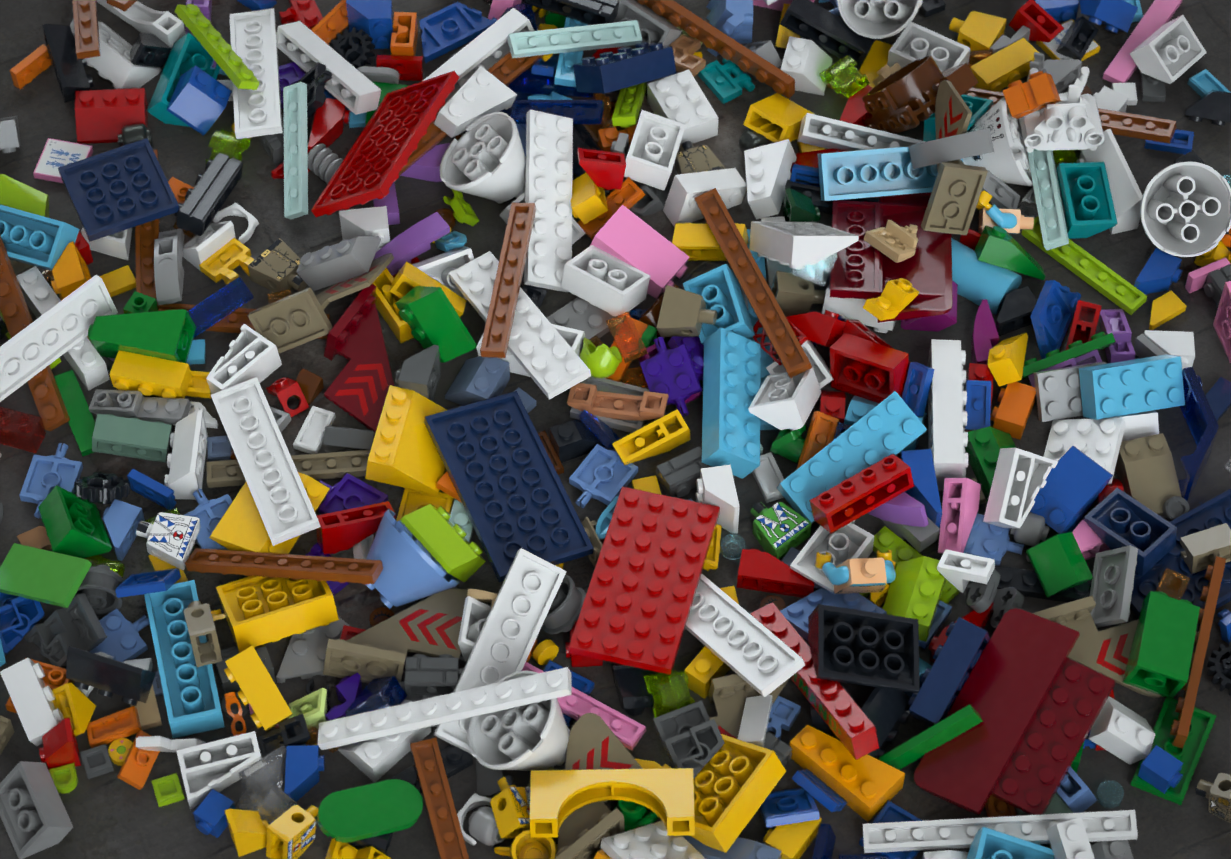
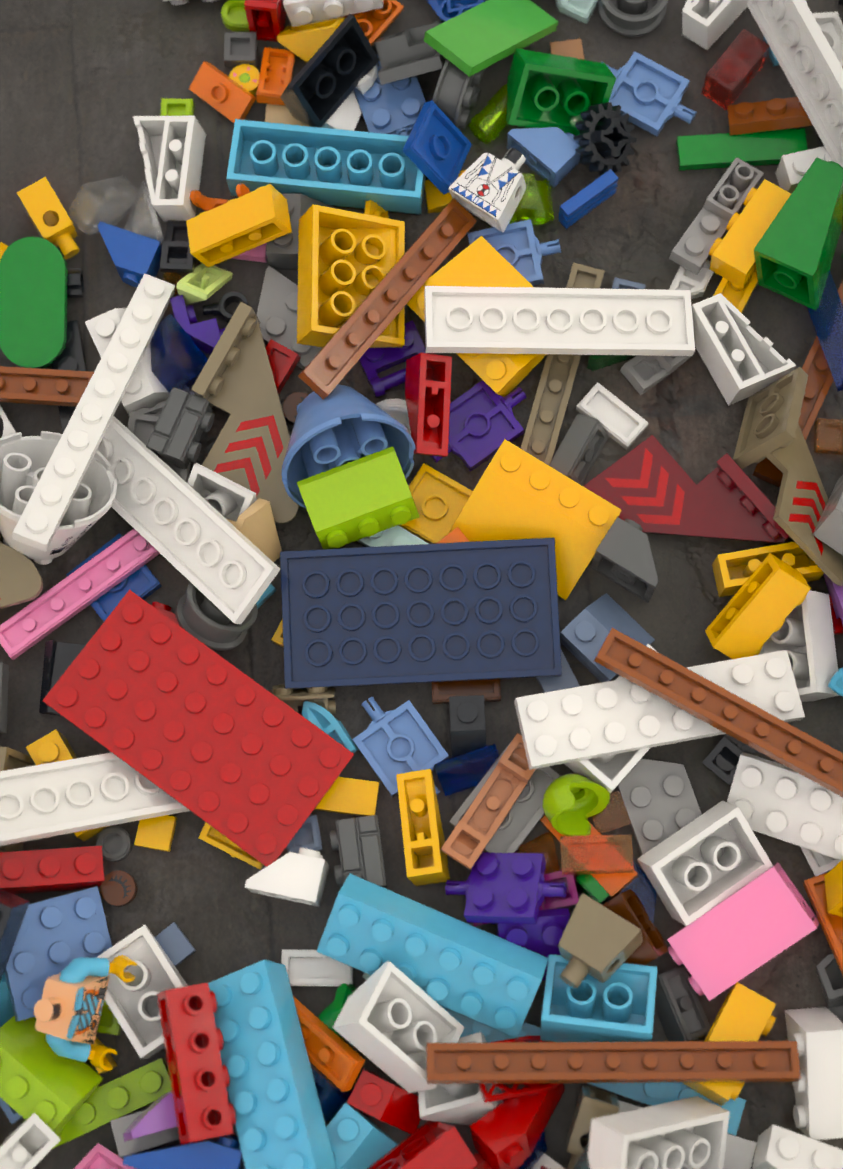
camera: 115 degrees right, 20 degrees up
(131, 437) = (672, 193): sand green brick -> none
(163, 744) = (220, 104): white tile -> none
(187, 456) = (614, 249): white slope -> none
(197, 352) = (787, 311): medium azure tile -> none
(199, 623) = (327, 173): dark tan torso -> none
(211, 815) = (118, 149): blue brick -> none
(246, 830) = (72, 165): yellow slope -> none
(285, 388) = (681, 394): red bracket -> none
(310, 385) = (681, 425): reddish brown slope -> none
(435, 322) = (701, 596): green slope -> none
(545, 651) = (170, 580): yellow tile -> none
(668, 691) = (27, 704): clear neon green cylinder -> none
(732, 546) = (229, 875): clear light blue tile -> none
(768, 574) = (166, 898): red slope -> none
(779, 528) = (226, 942): bright green torso -> none

